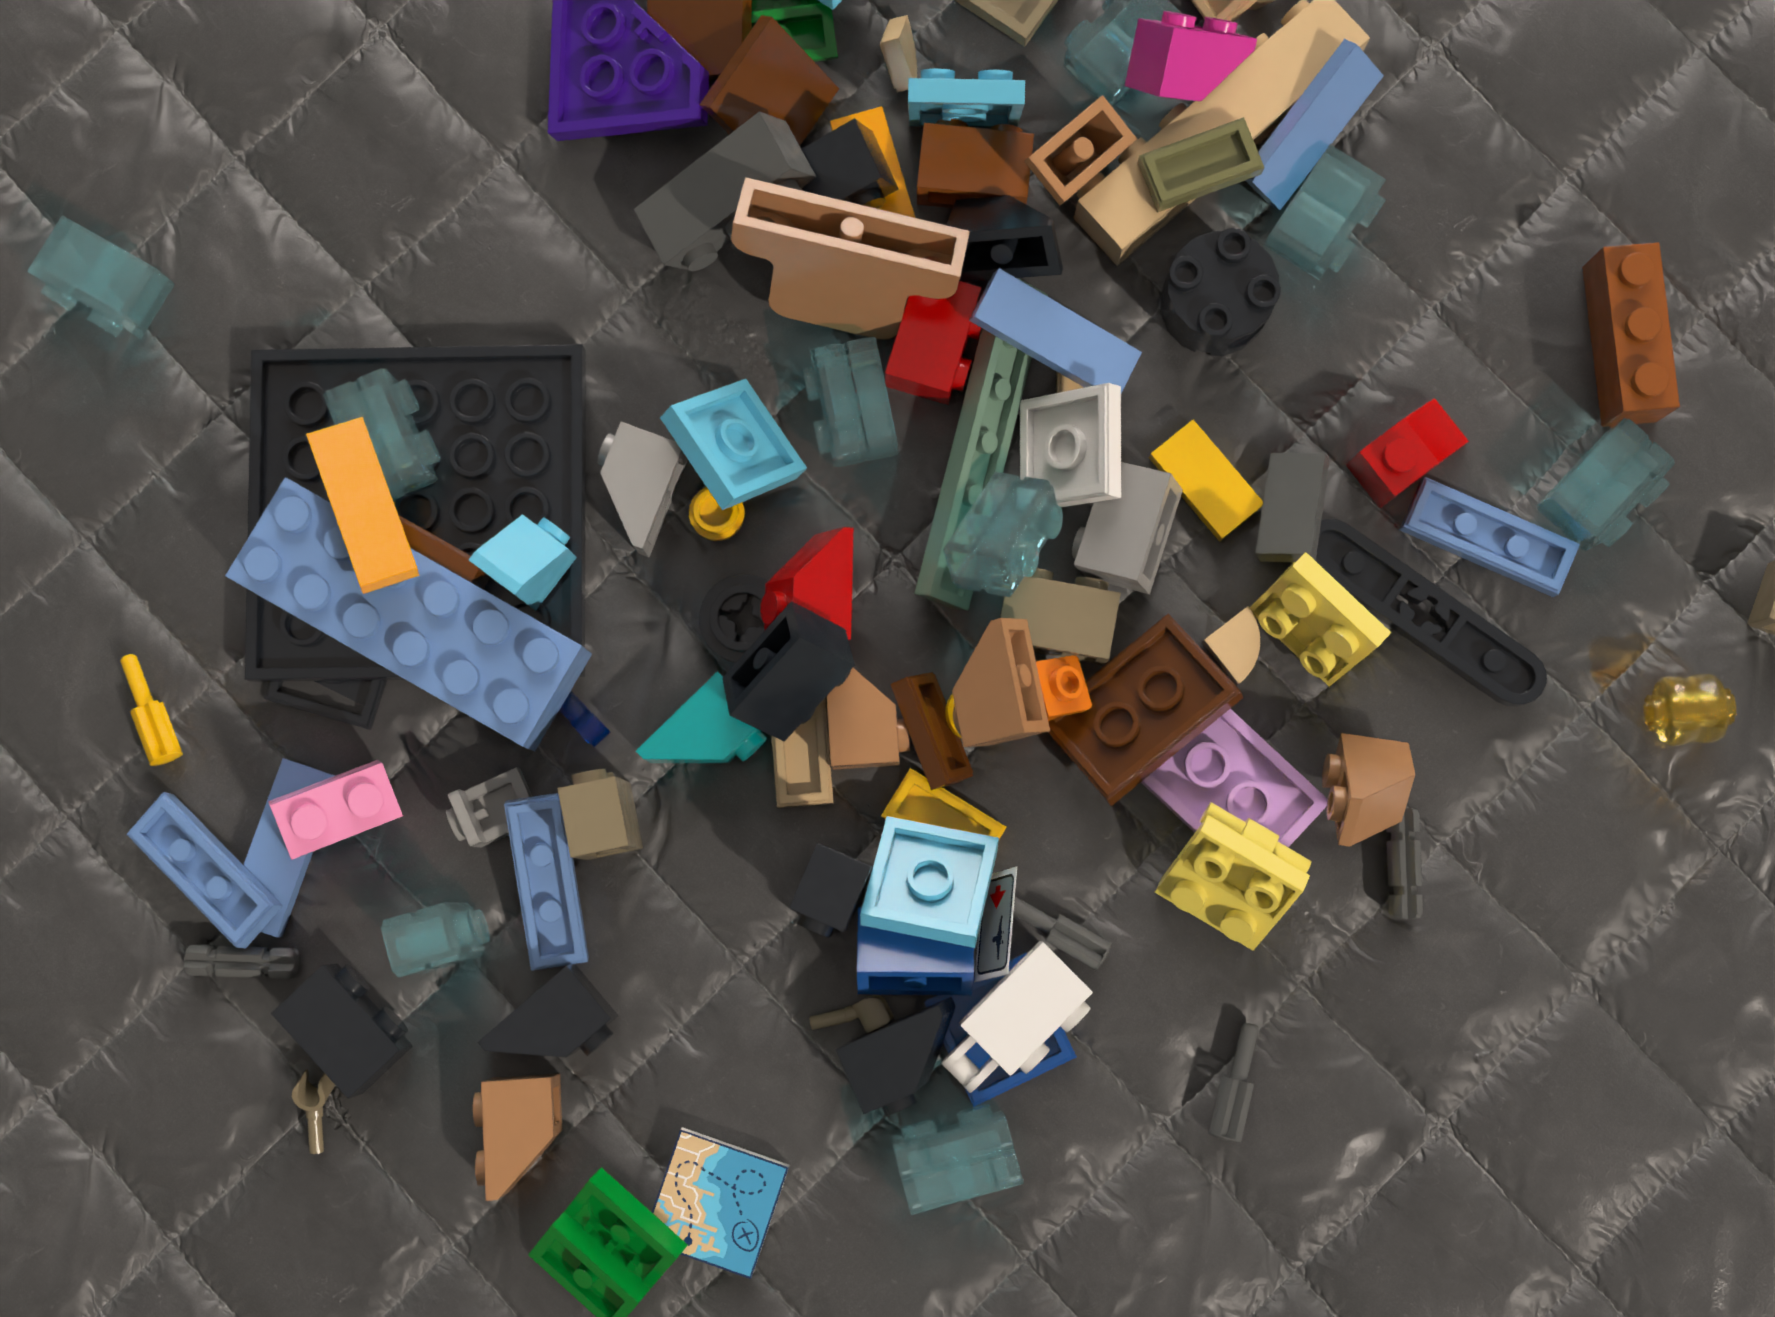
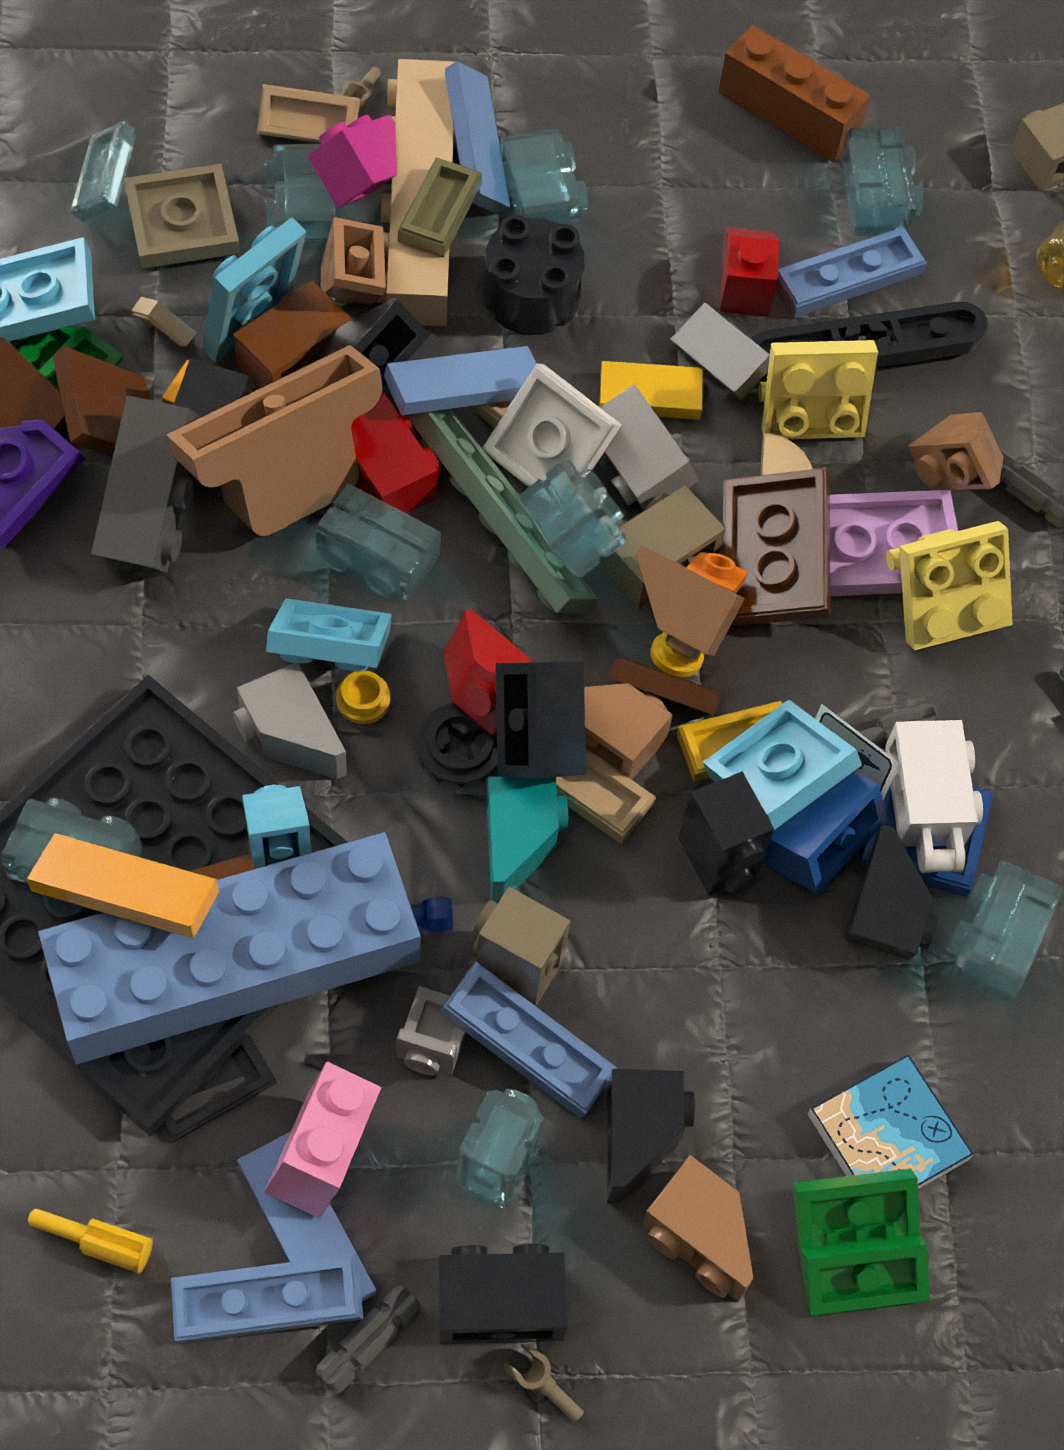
camera: 60 degrees left, 20 degrees down
(872, 1012) = (837, 901): dark tan hand -> none

